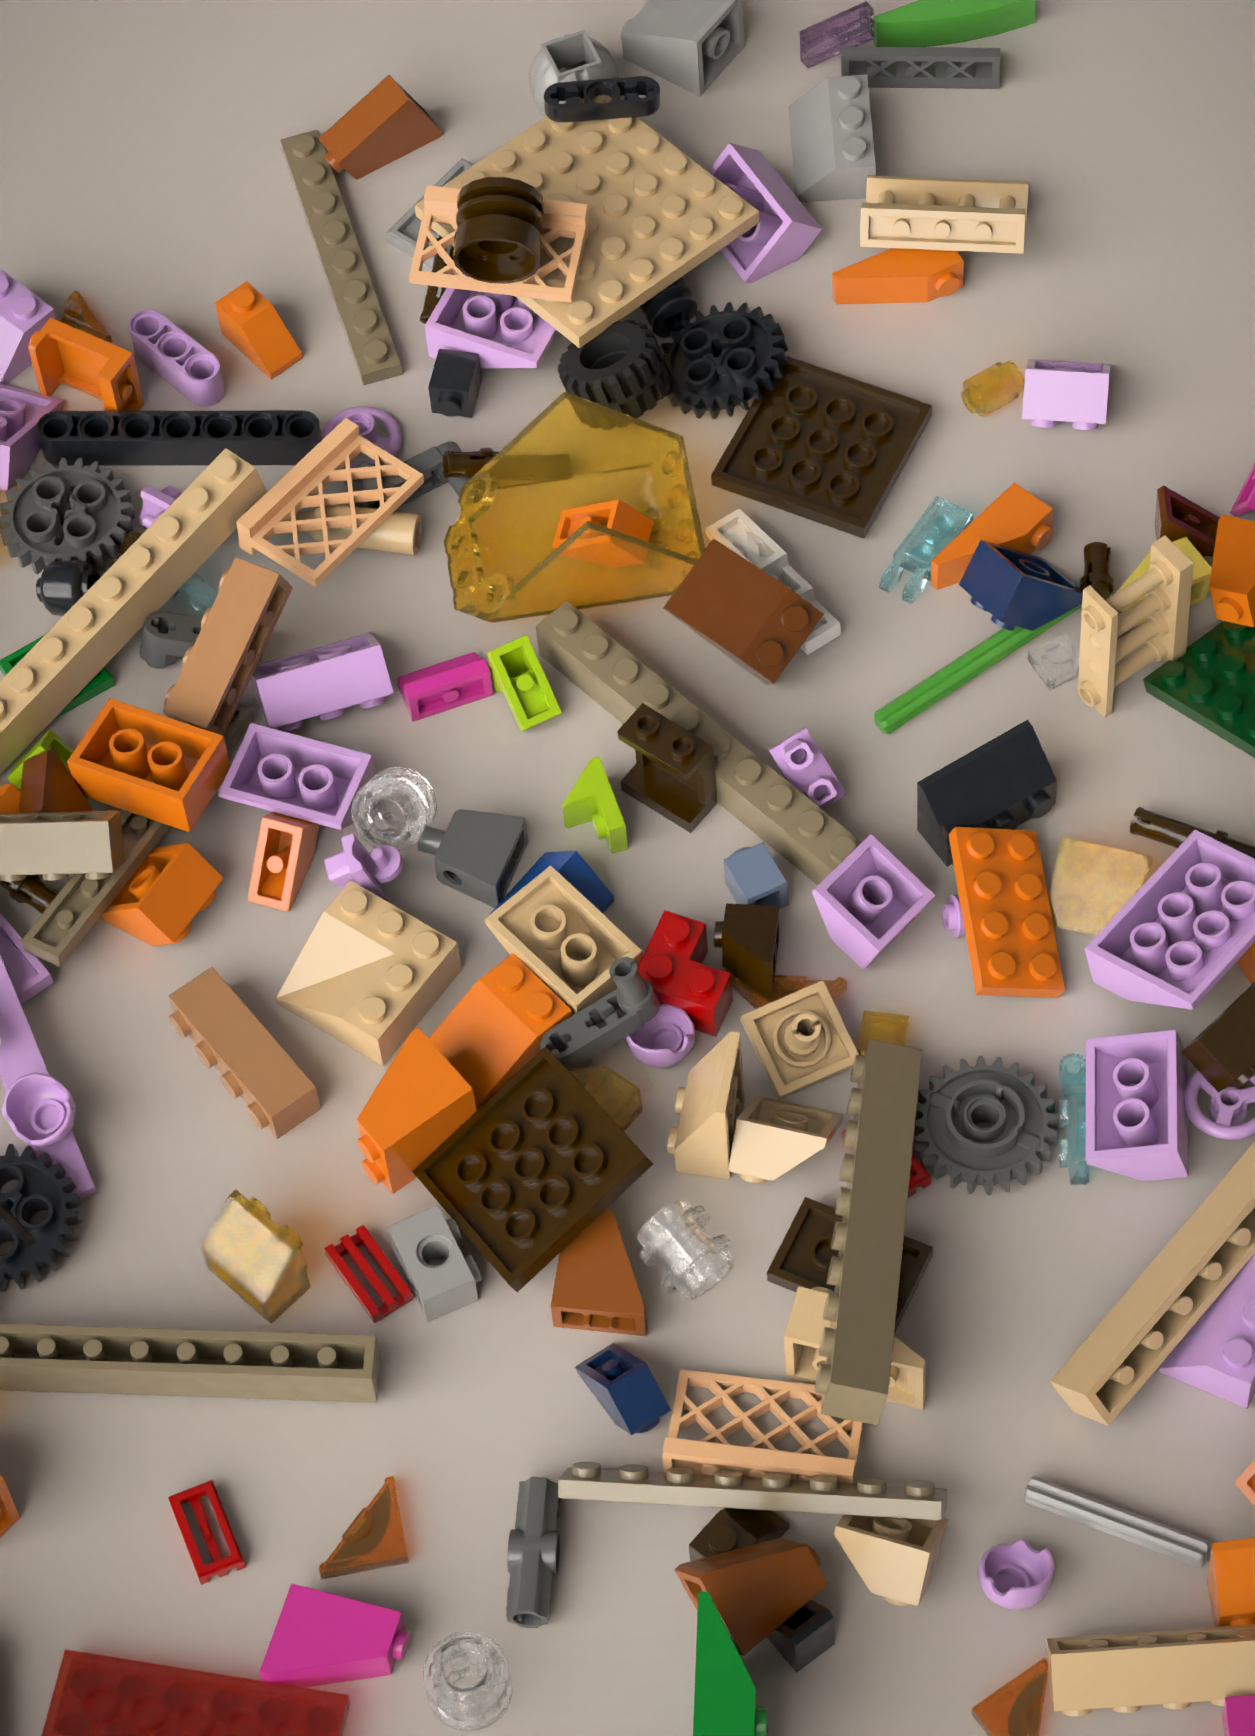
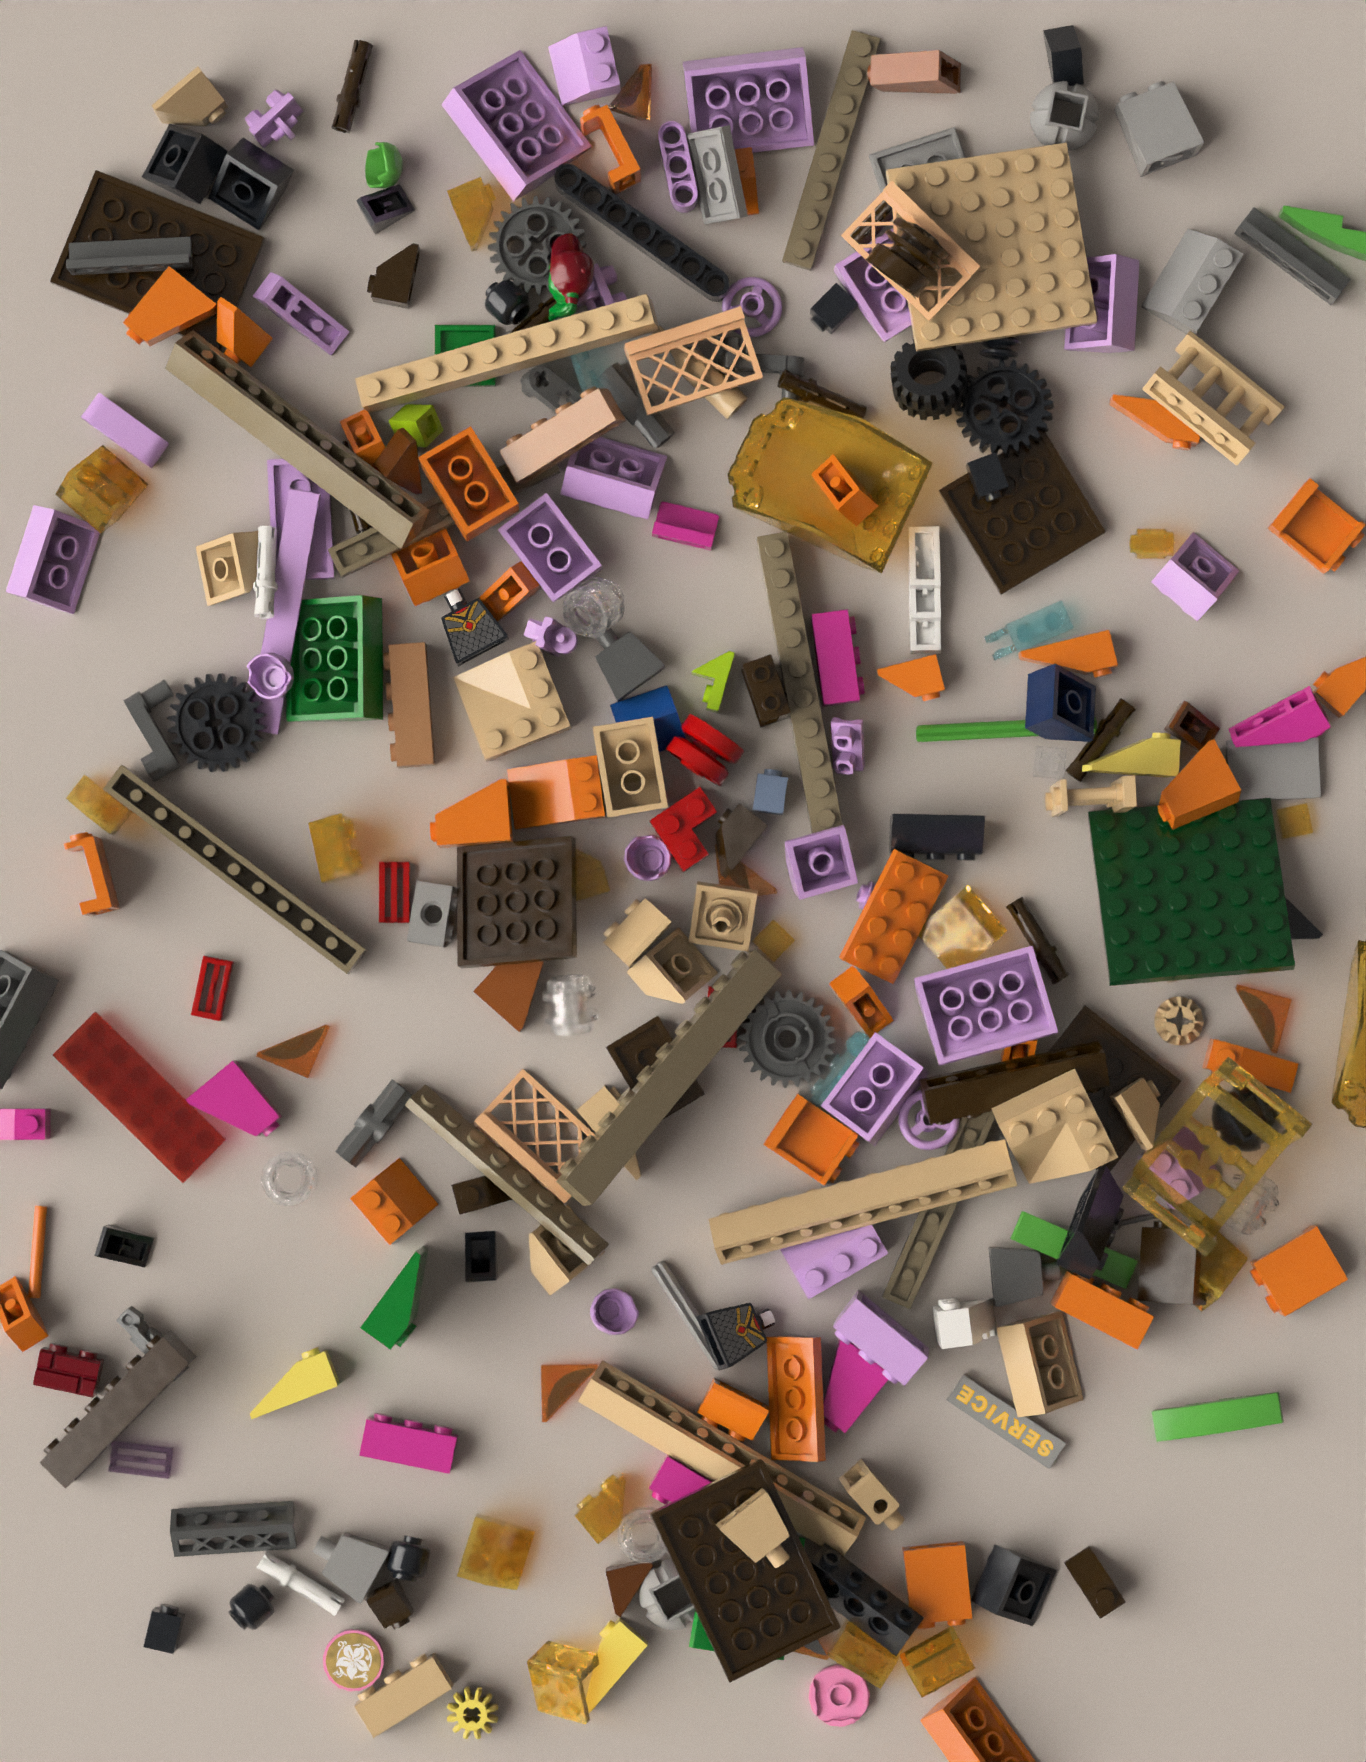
camera: 30 degrees right, 30 degrees up
(118, 1060) = (337, 661): none -> green slope
(123, 500) = (569, 275): none -> dark red hair
(210, 250) = (754, 93): none -> lavender slope
(227, 324) = (716, 174): none -> light grey tile
(261, 929) = (470, 628): none -> torso
(320, 606) = (629, 401): none -> dark grey piece
(523, 682) = (726, 567): lime slope -> none
(526, 32) = (1064, 55): none -> black slope
(578, 1036) = (602, 828): dark grey beam -> none
(588, 89) = (1041, 149): black beam -> none
(624, 1388) = (483, 1060): dark blue slope -> none
(626, 1634) = (394, 1201): none -> orange slope
(640, 871) = (702, 753): none -> red wheel
(726, 696) = (837, 658): none -> dark pink brick
(743, 612) = (882, 617): reddish brown slope -> none
(755, 421) = (987, 477): none -> black brick
(755, 1586) = (468, 1233): dark orange slope -> none
(828, 36) = (1273, 208): clear purple tile -> none
(830, 664) = (916, 677): none -> orange slope
(1038, 1025) = (861, 1001): none -> orange slope
(1105, 1220) = (812, 1140): none -> orange panel
(1160, 275) = (1317, 528): none -> orange panel
(1186, 1494) = (734, 1332): none -> torso

